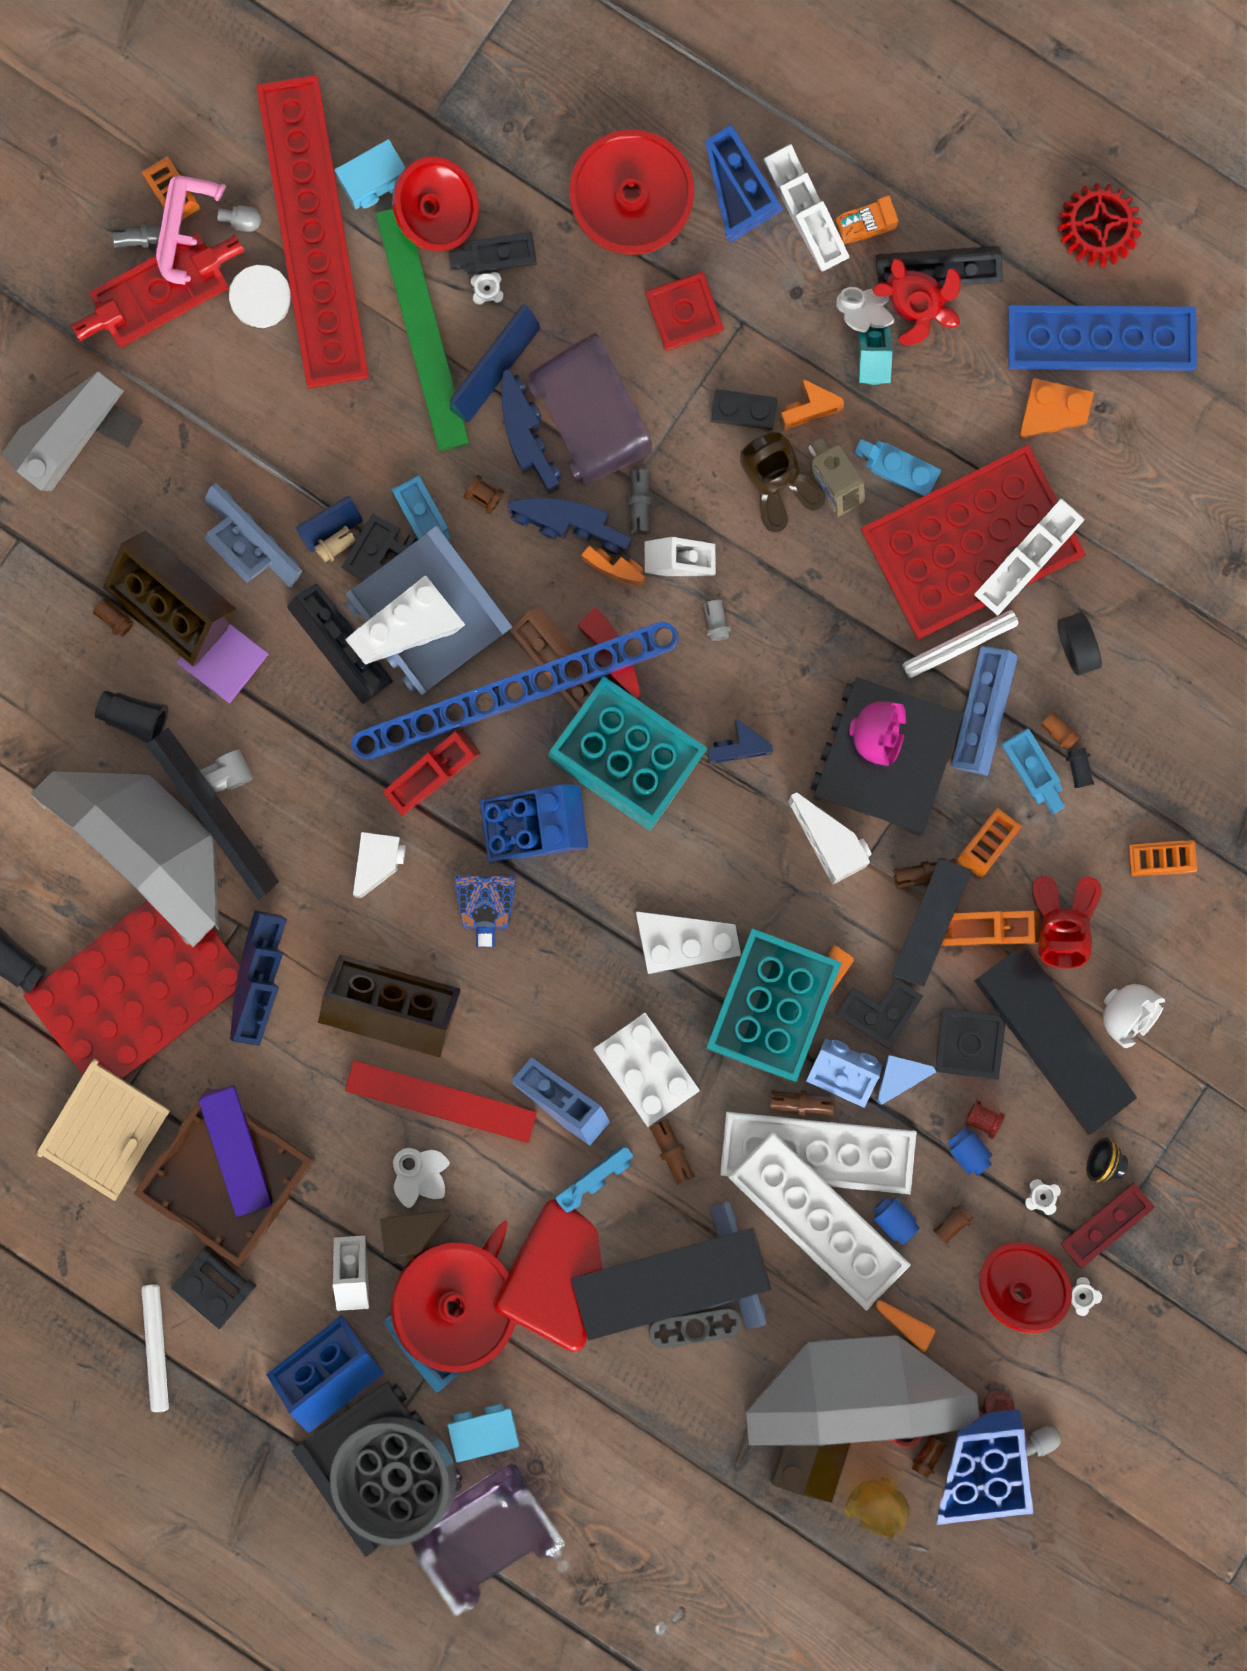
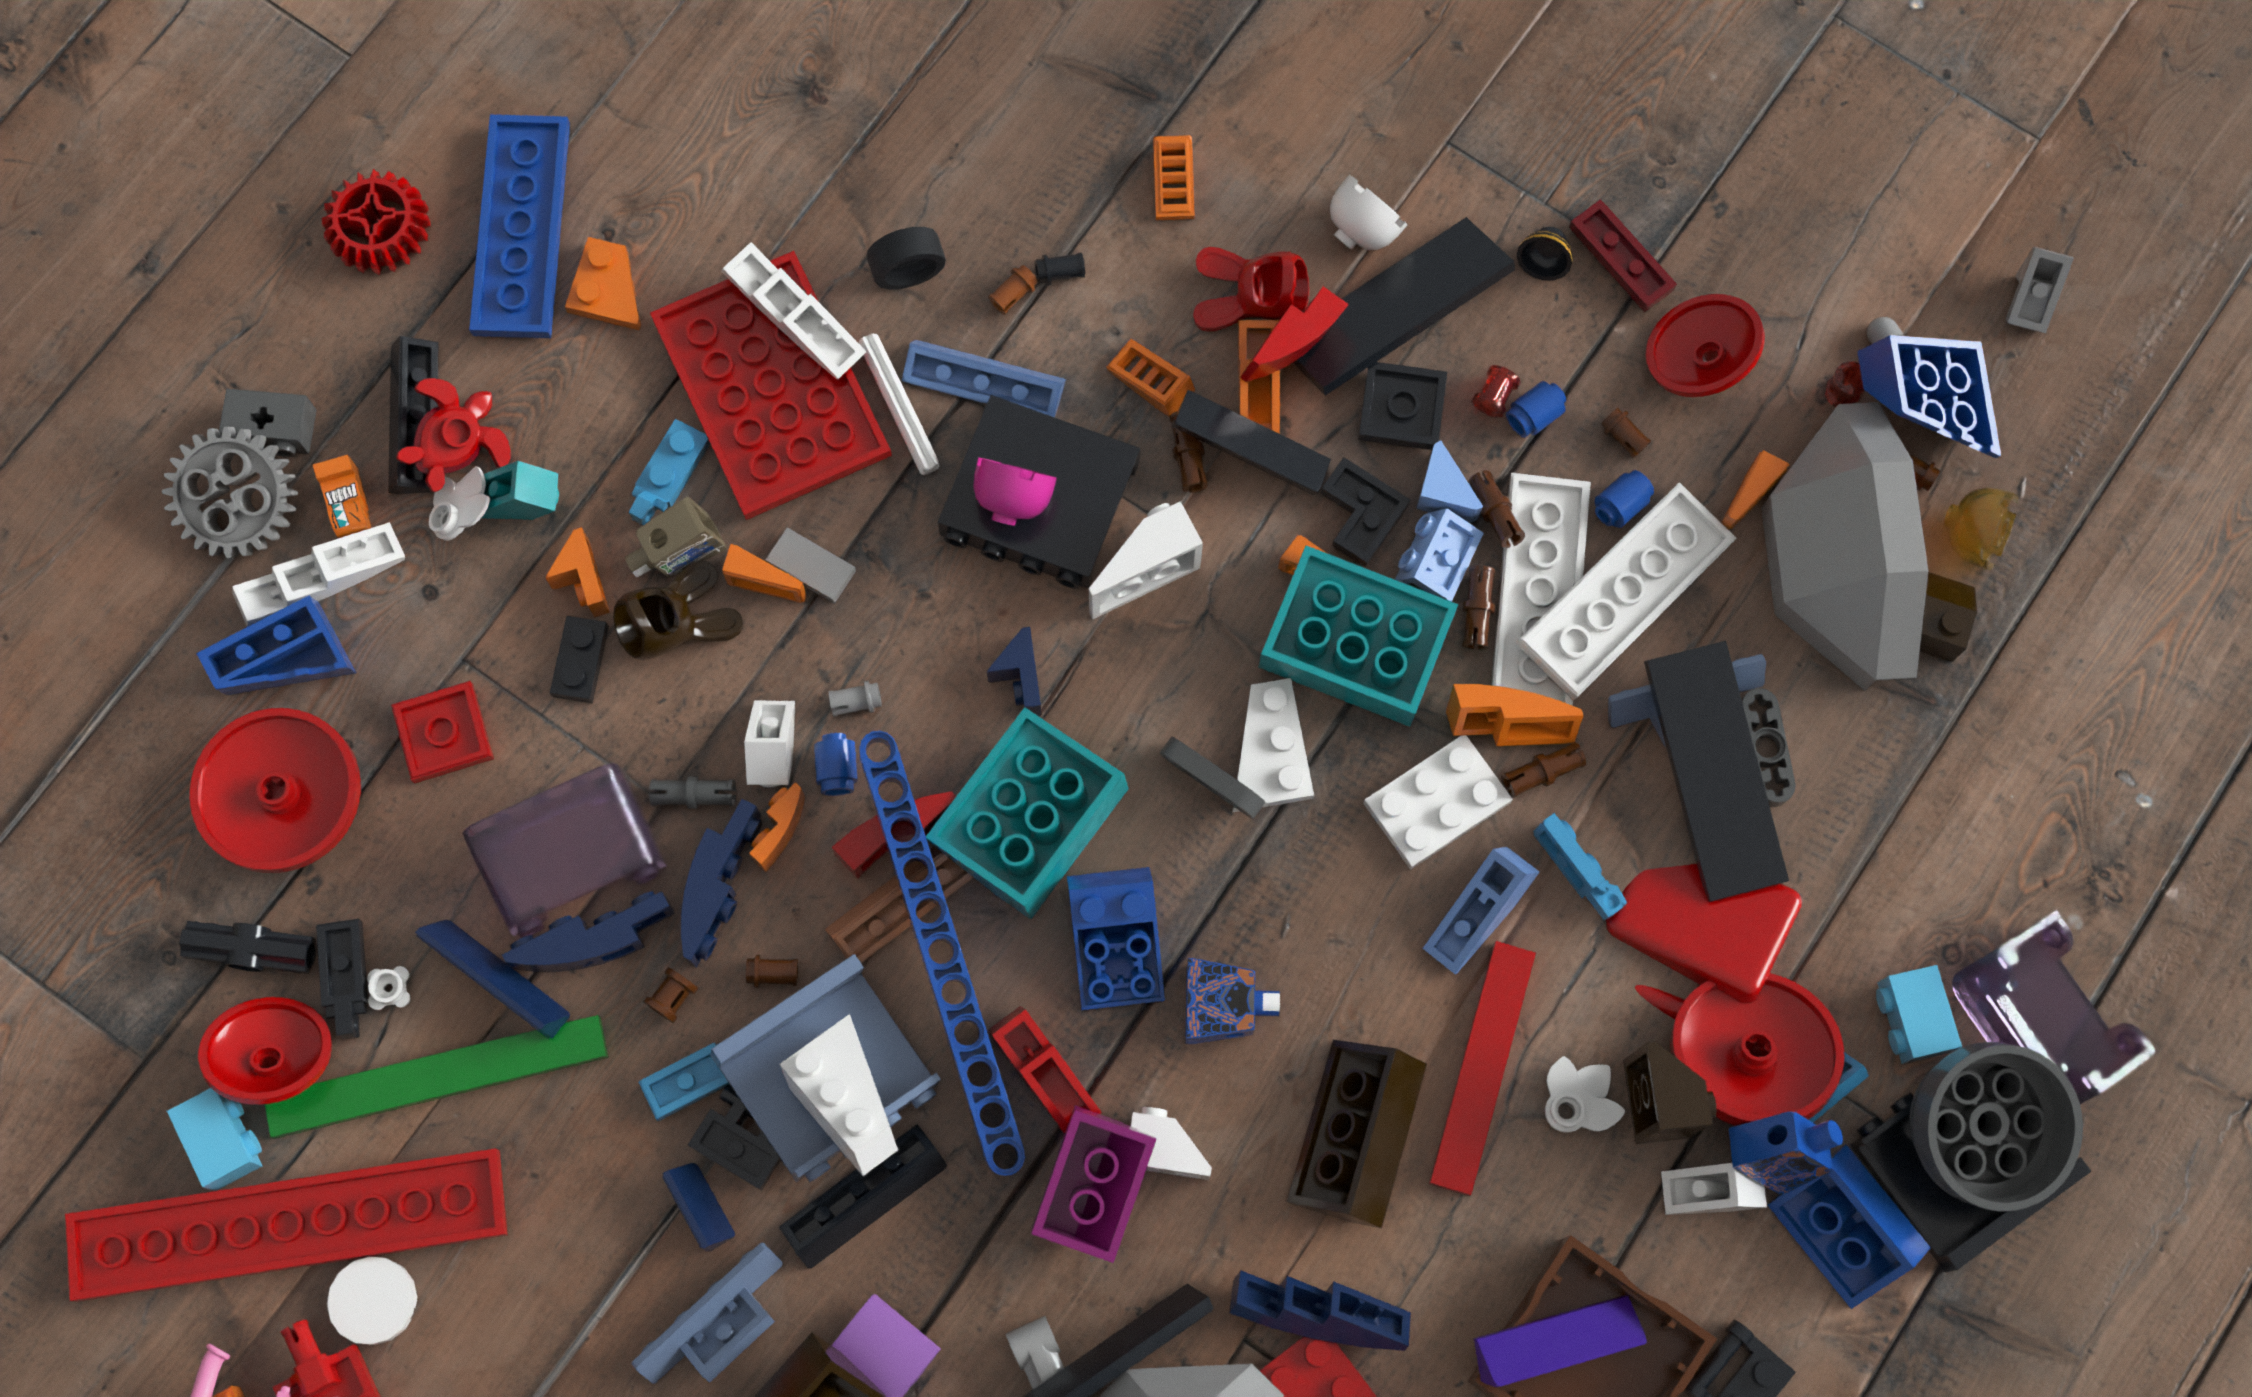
camera: 90 degrees left, 10 degrees down
(241, 218) = (258, 1326): light grey cylinder -> none
(335, 544) = (727, 1199): tan pin -> none
(345, 808) = (1093, 1184): none -> magenta slope
(374, 1319) = (1784, 1150): none -> blue torso
(503, 568) = (771, 971): none -> reddish brown pin
(514, 183) = (247, 947): none -> black piece
(657, 894) = (1212, 777): none -> dark grey beam
(663, 607) = (835, 764): none -> blue brick
(712, 1126) = (1511, 715): none -> orange slope
(815, 535) = (754, 574): none -> orange slope
(824, 581) = (811, 564): none -> light grey tile
(883, 1117) = (1496, 509): none -> reddish brown pin
(890, 118) = (246, 524): none -> light grey gear
(929, 139) = (291, 417): none -> dark grey brick
(1019, 953) = (1295, 334): none -> red slope
(1034, 769) = (1061, 320): dark azure hinge -> none
(1051, 1193) = (1594, 319): white plate -> none
(1084, 1567) = (2038, 289): none -> light grey slope
(1092, 1296) = (1711, 277): white plate -> none

